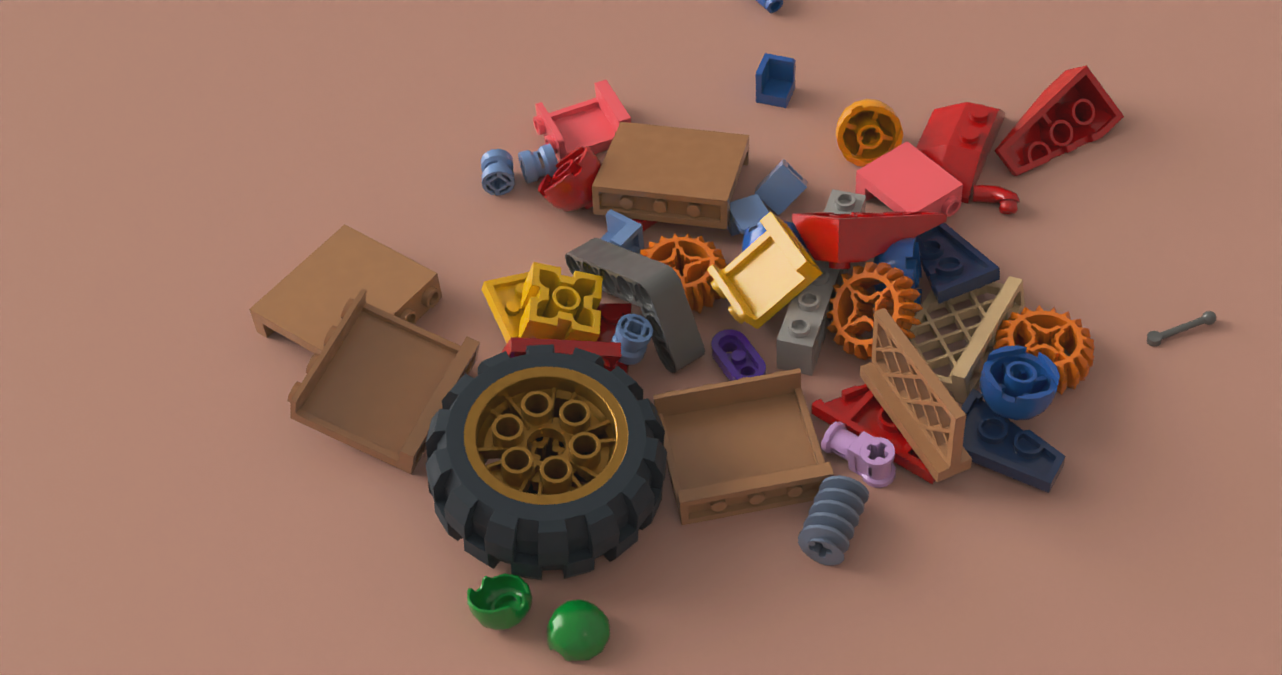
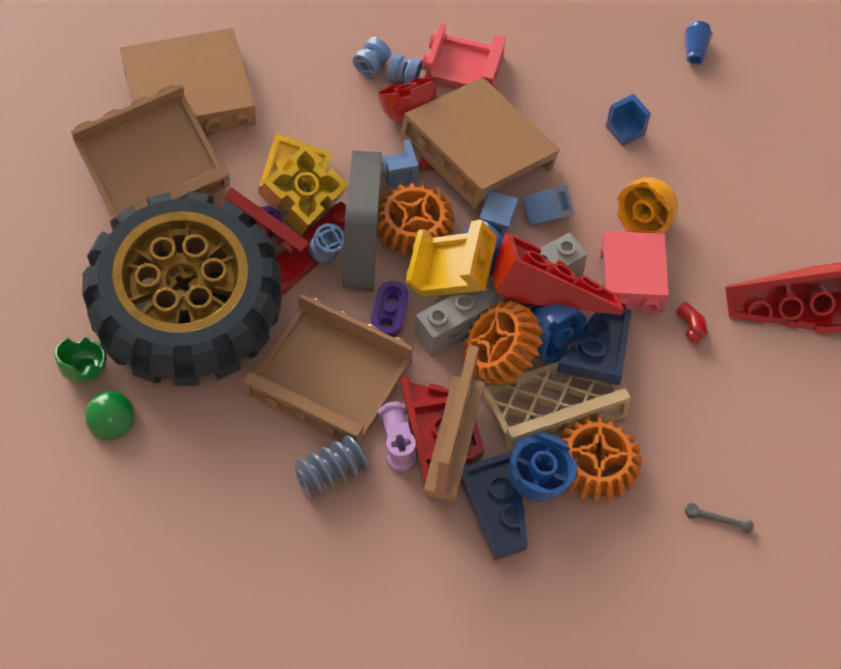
camera: 30 degrees right, 10 degrees up
(961, 140) = (709, 262): red wedge -> none

